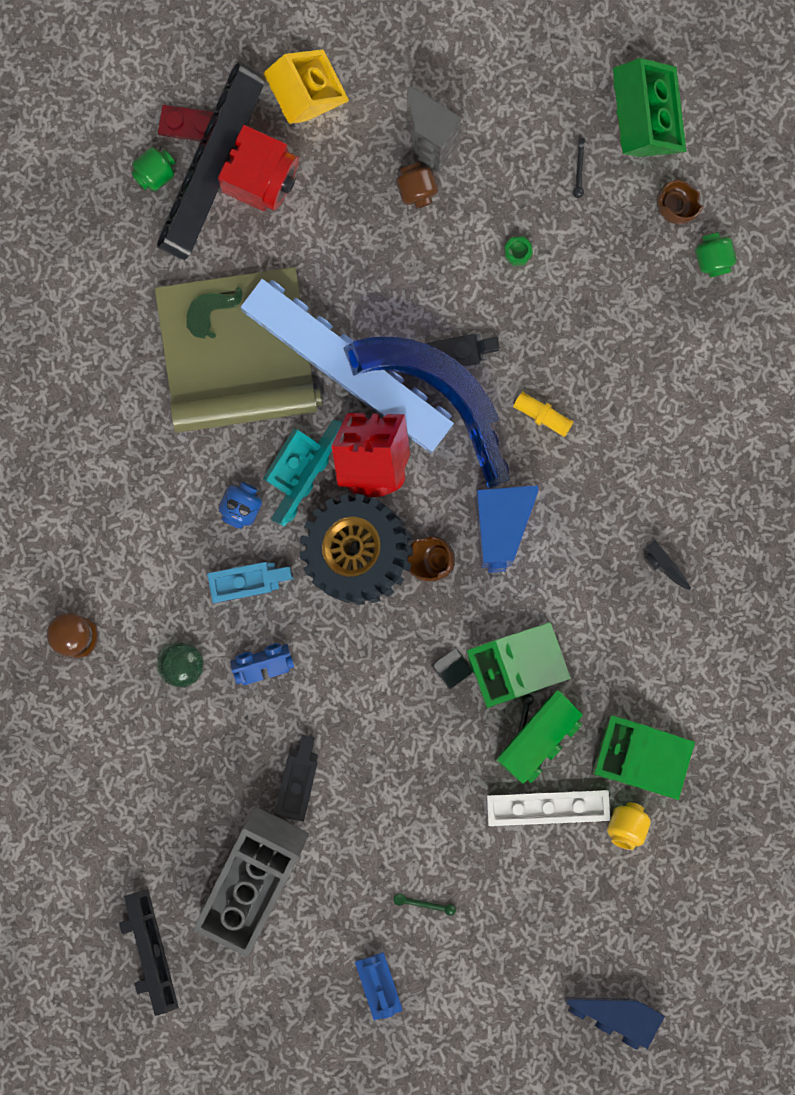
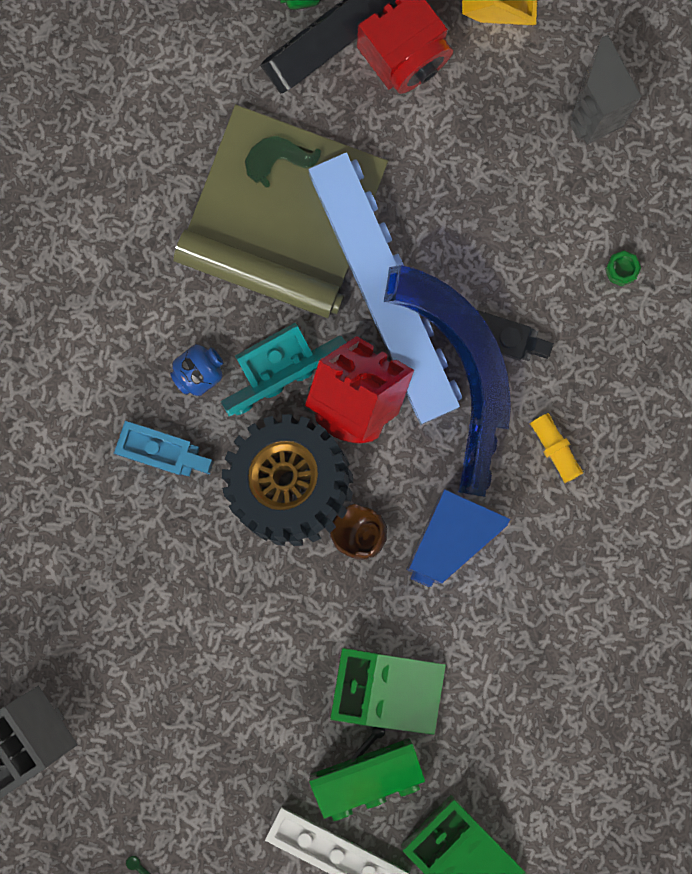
camera: 25 degrees right, 0 degrees up
(179, 665) = (46, 497): clear green hair -> none
(249, 665) = (113, 538): blue hinge -> none
(297, 781) = (97, 683): black hinge -> none
(417, 185) = (557, 145): reddish brown head -> none
(452, 669) = (318, 656): black slope -> none
(658, 559) = (592, 662): black plate -> none

